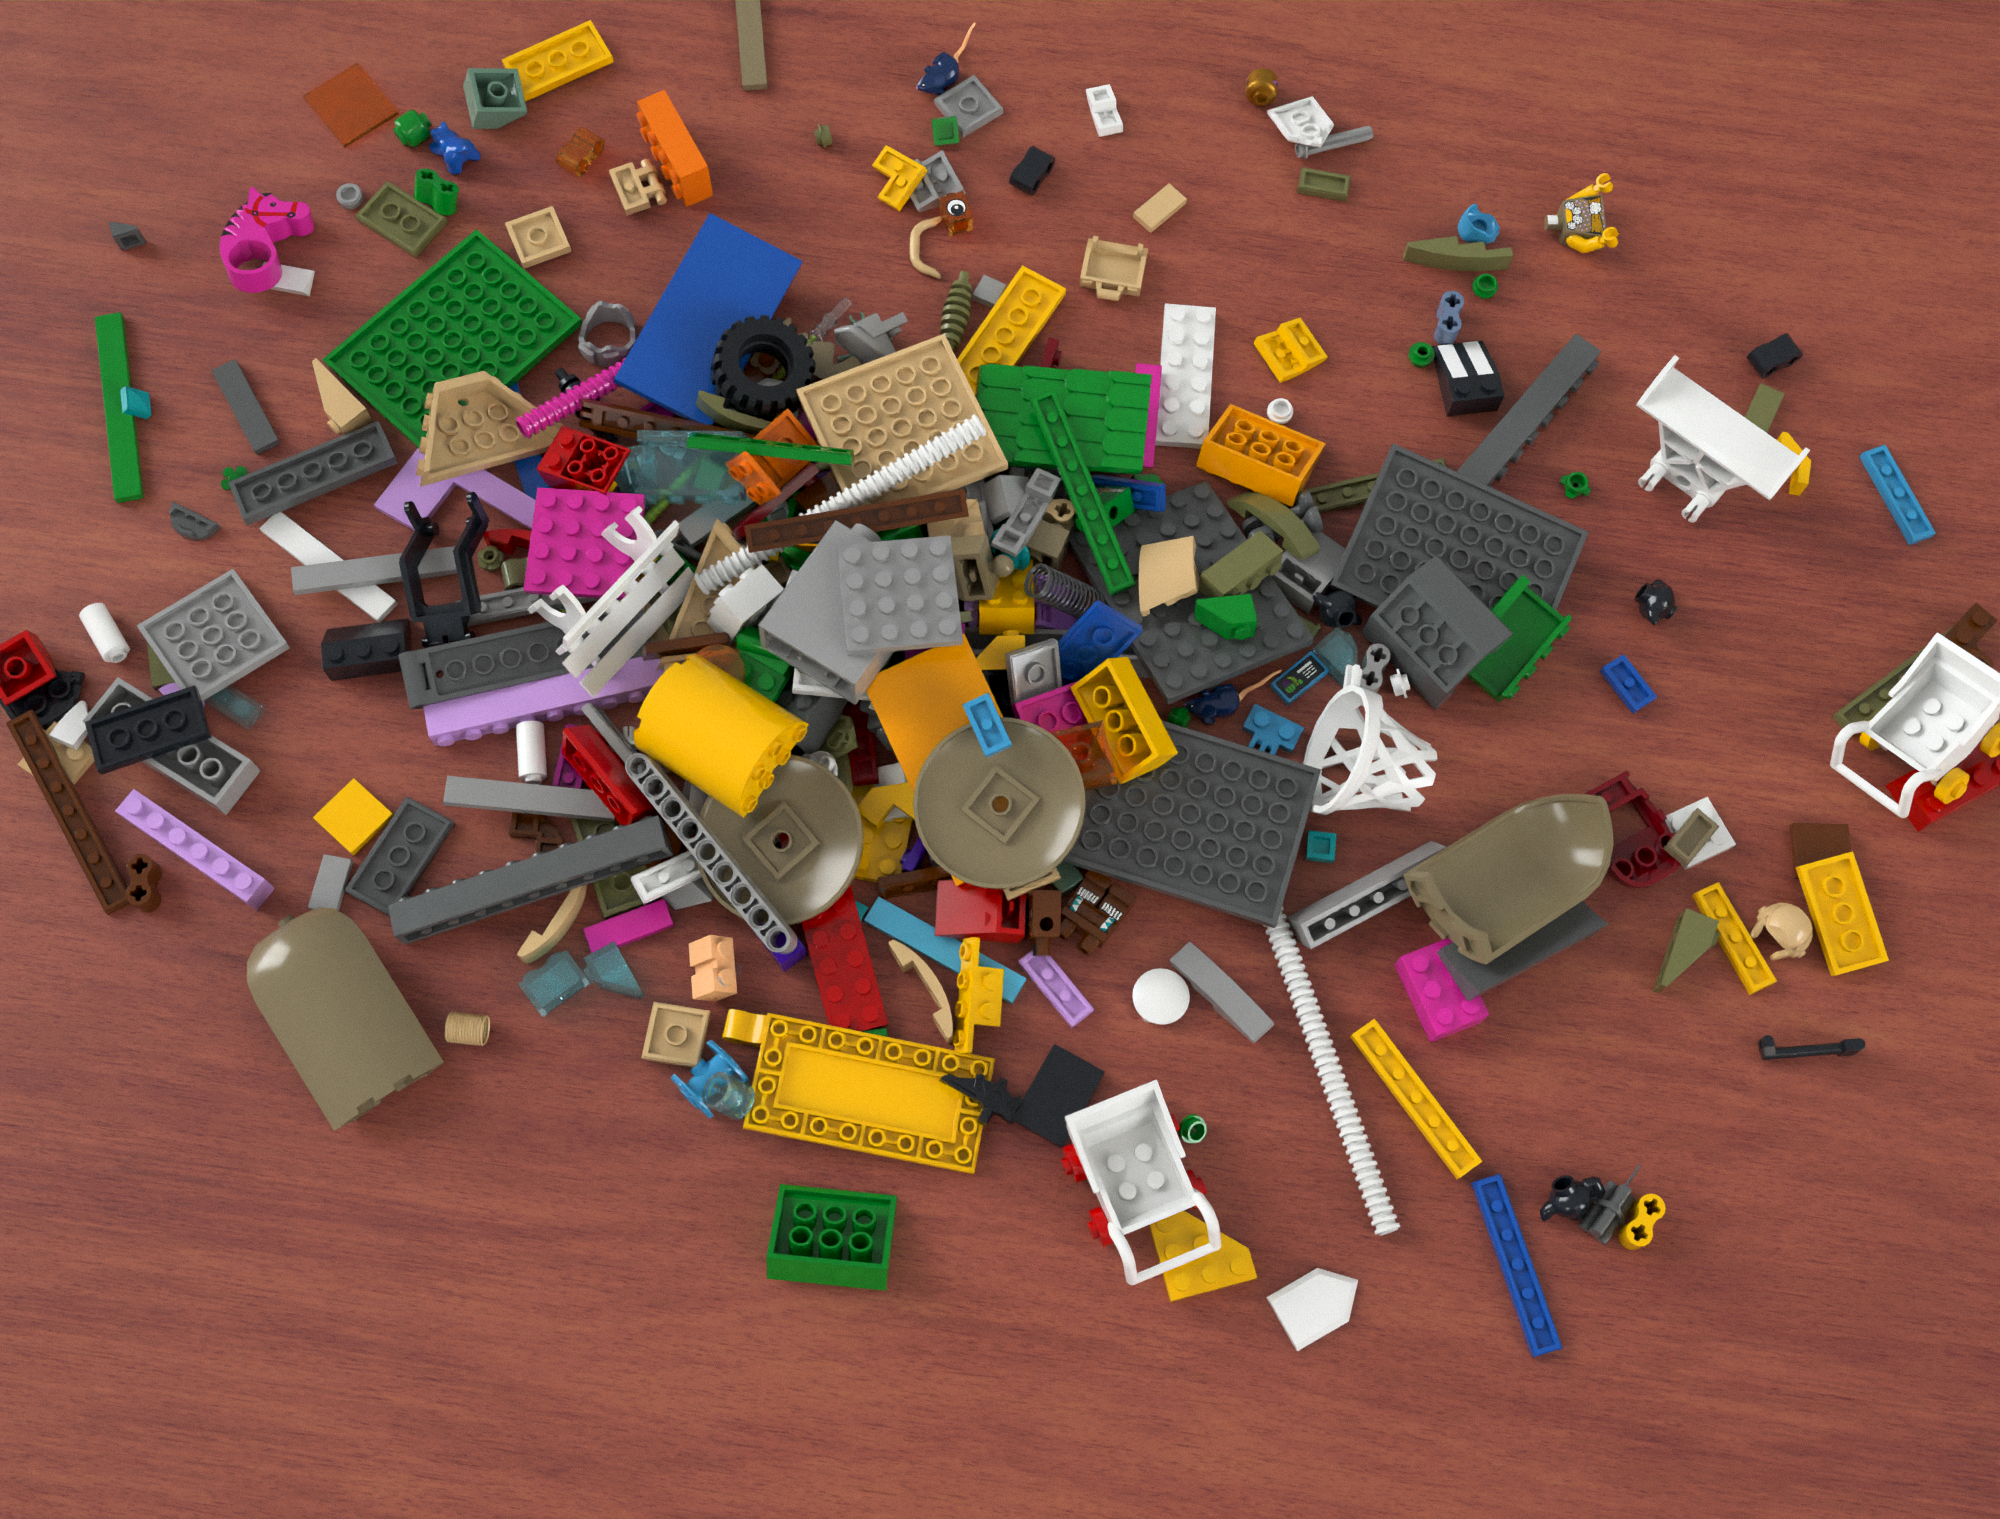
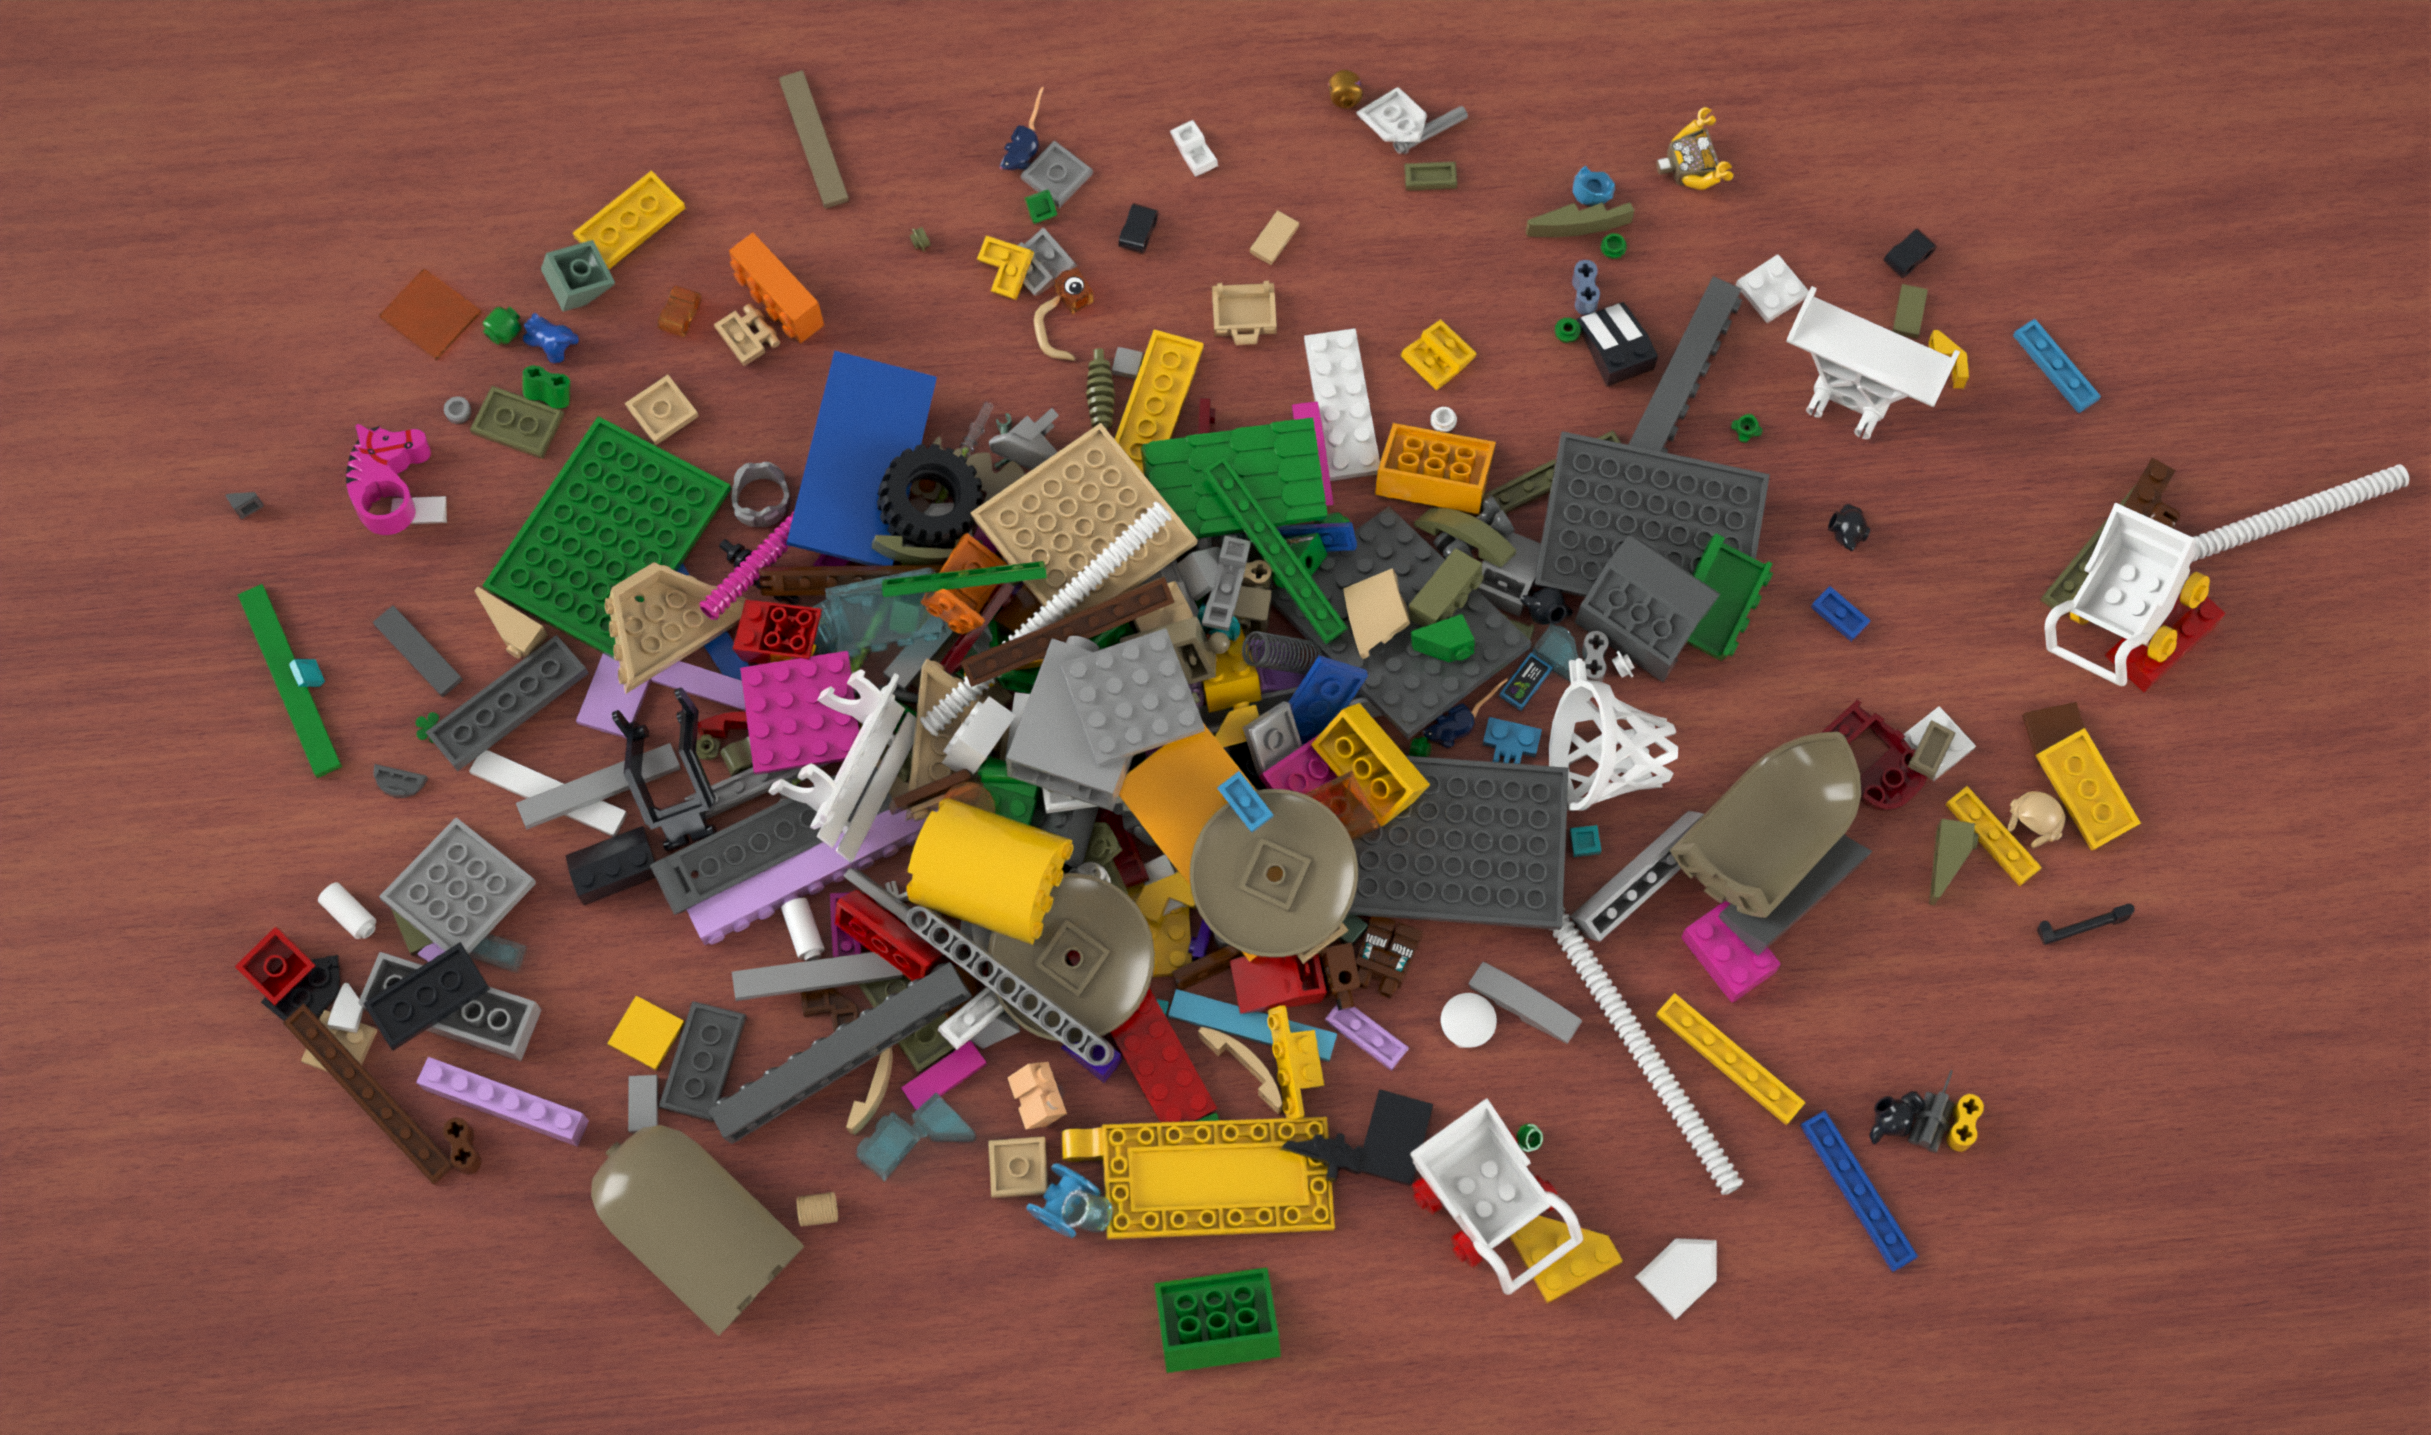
camera: 10 degrees left, 0 degrees up
(1630, 359) = (1772, 288): none -> white plate

